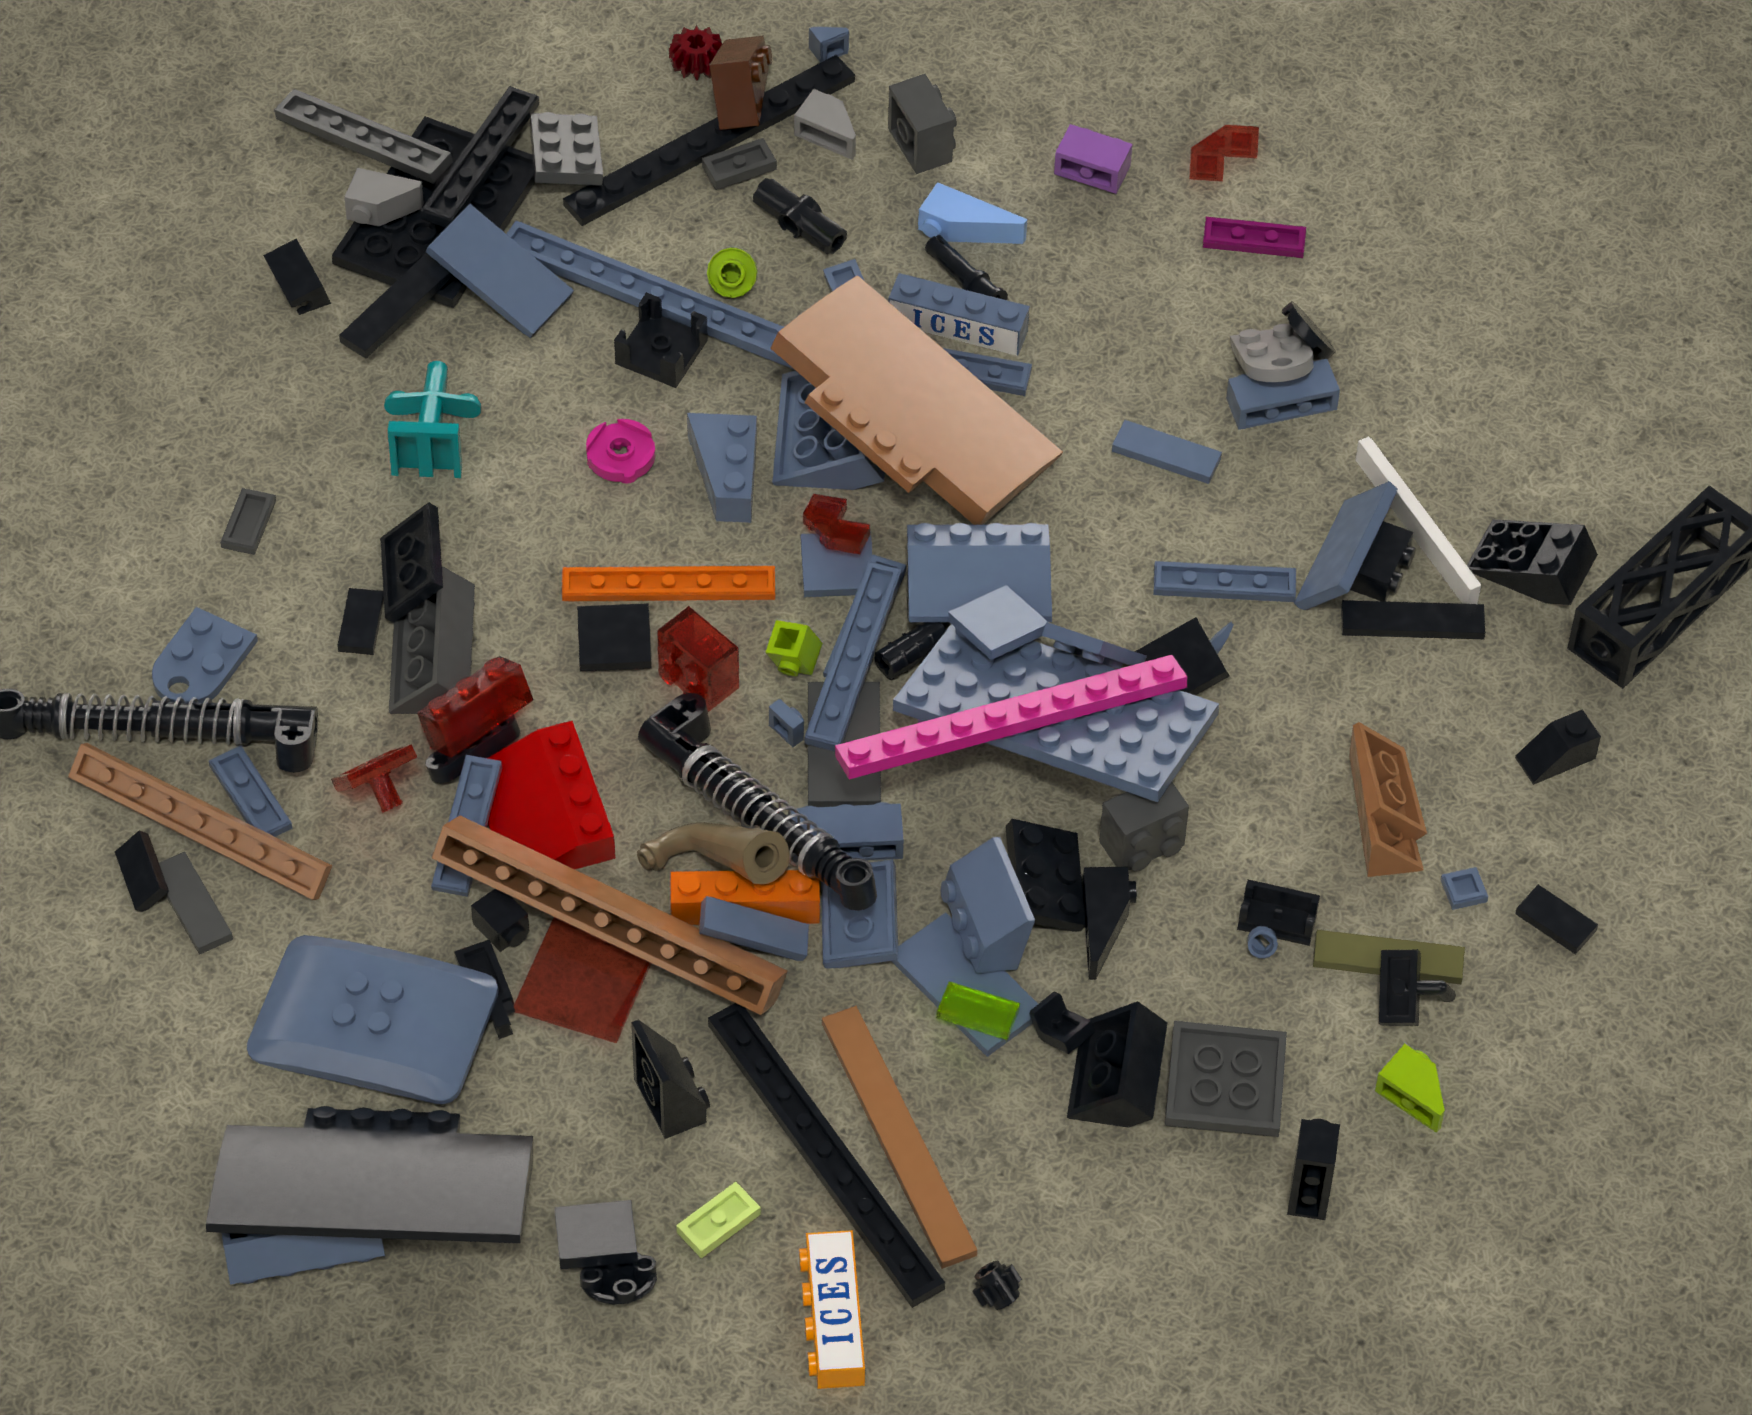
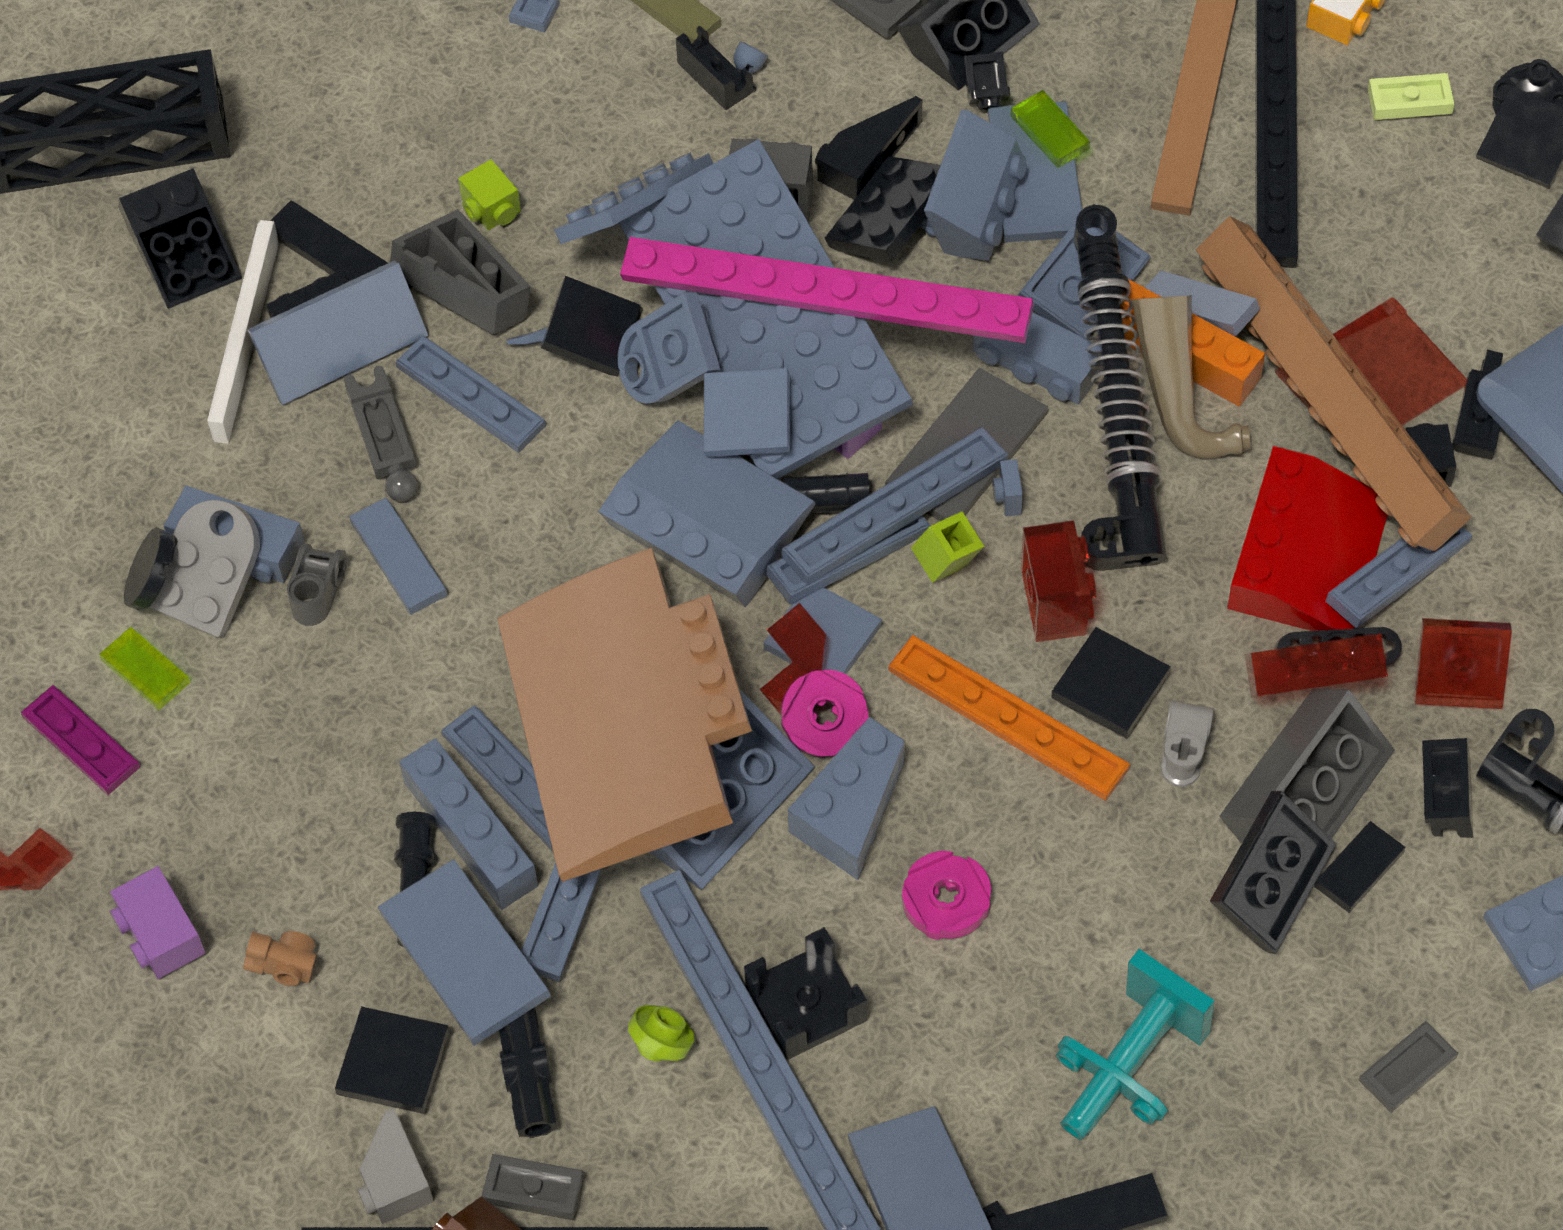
camera: 140 degrees left, 5 degrees up
(333, 691) = (1448, 786): none -> black hinge
(534, 624) = (1185, 738): none -> light grey piece
(666, 1082) = (1382, 200): black slope -> none
(787, 499) = (817, 688): none -> dark pink plate
(883, 177) = (392, 1060): none -> black tile
(889, 236) = (464, 952): none -> sand blue tile
(921, 123) = (300, 1076): dark grey brick -> none
(968, 219) = (359, 944): light blue slope -> none
(1000, 188) = (286, 960): none -> medium nougat plate
(1201, 396) = (315, 578): none -> dark grey piece
(1227, 737) = (631, 197): none -> sand blue plate
(1255, 516) = (383, 434): none -> dark grey plate
(1257, 295) = (144, 668): none -> clear neon green tile
(1302, 637) = (462, 272): none -> dark grey wedge
(1342, 711) = (489, 196): none -> lime brick
(1385, 804) = (536, 104): medium nougat slope -> none
(1560, 747) = (337, 61): black slope -> none

